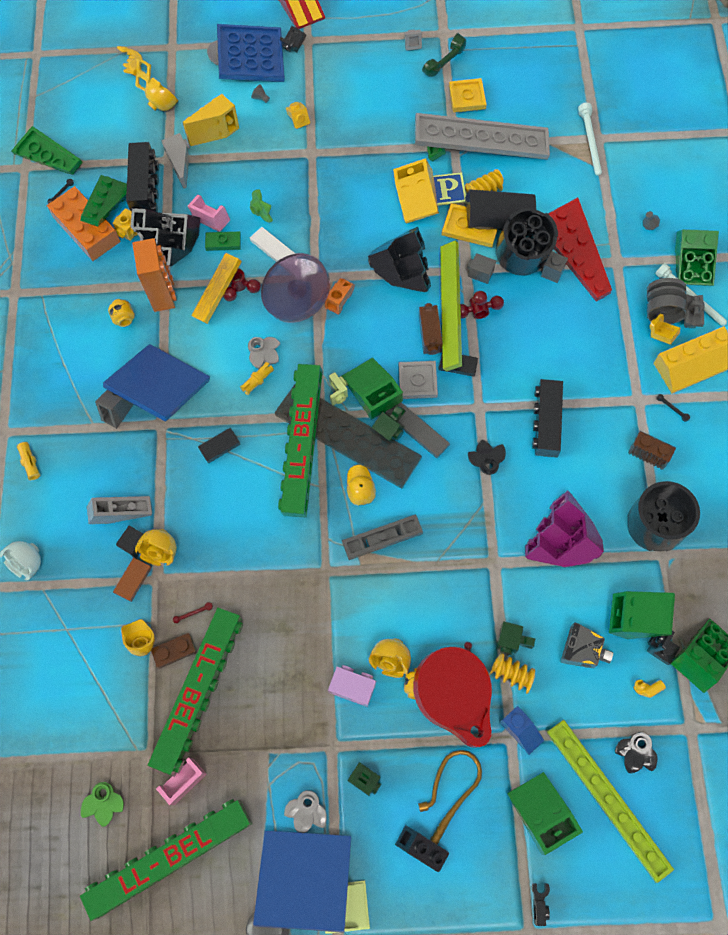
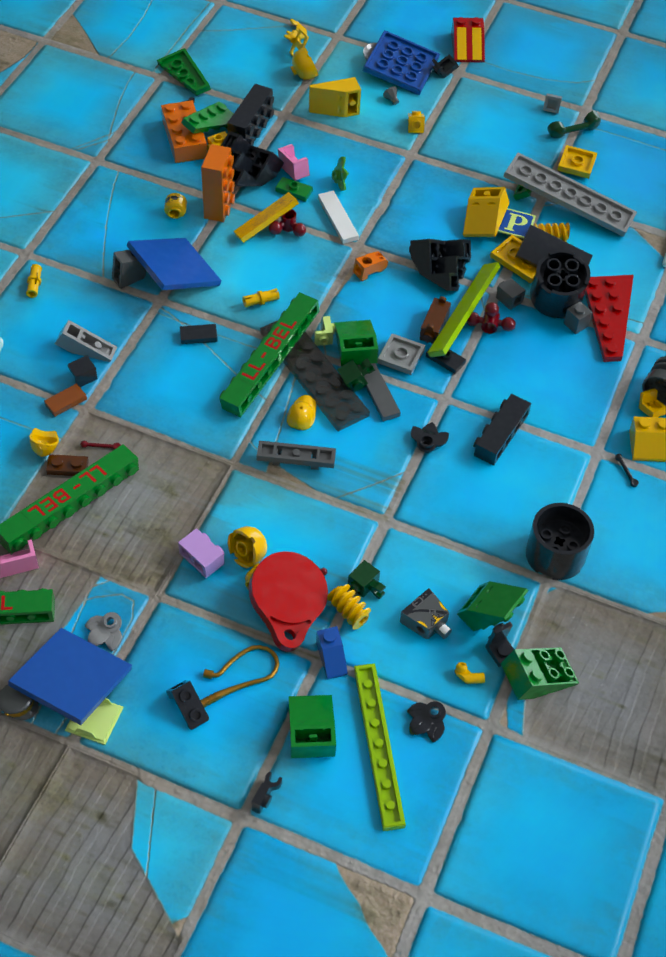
camera: 20 degrees right, 15 degrees down
(156, 547) = (99, 382): yellow cylinder -> none
(178, 155) = (294, 114): light grey slope -> none
(265, 352) = (279, 279): light grey plate -> none
(295, 287) = (334, 243): clear purple dish -> none
(365, 779) = (169, 627): dark green brick -> none
(565, 536) = (462, 524): magenta brick -> none
(652, 450) = (583, 491): reddish brown brick -> none

